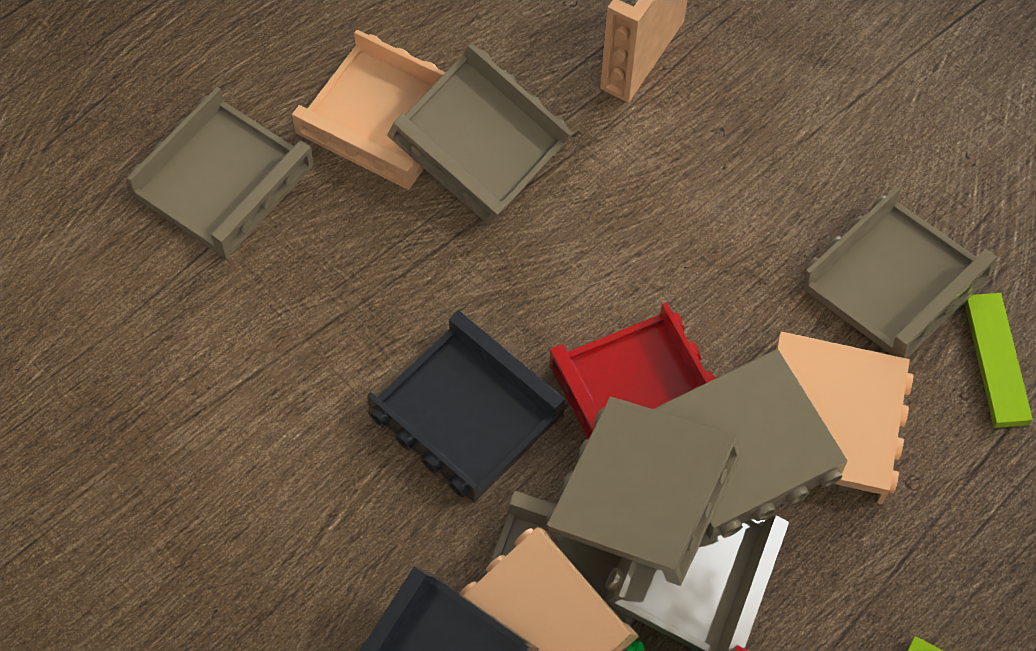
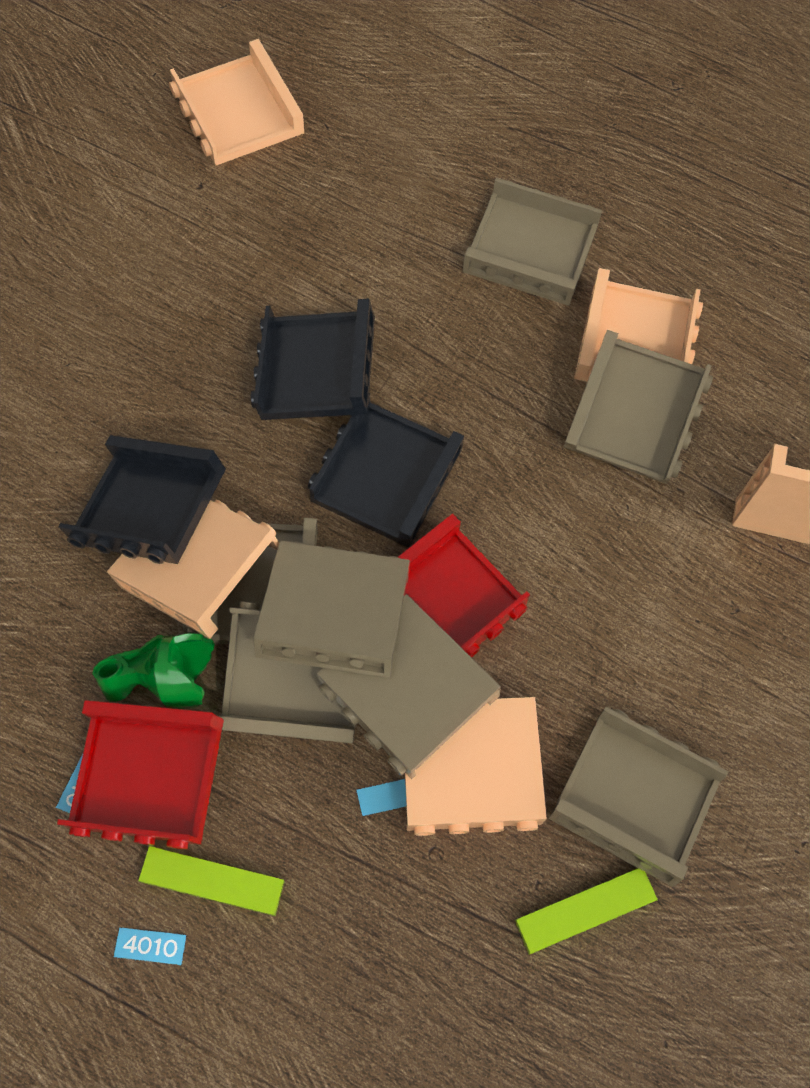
camera: 70 degrees right, 5 degrees up
(307, 441) = (314, 364): none -> black panel
(842, 514) = (382, 797): none -> medium azure sticker

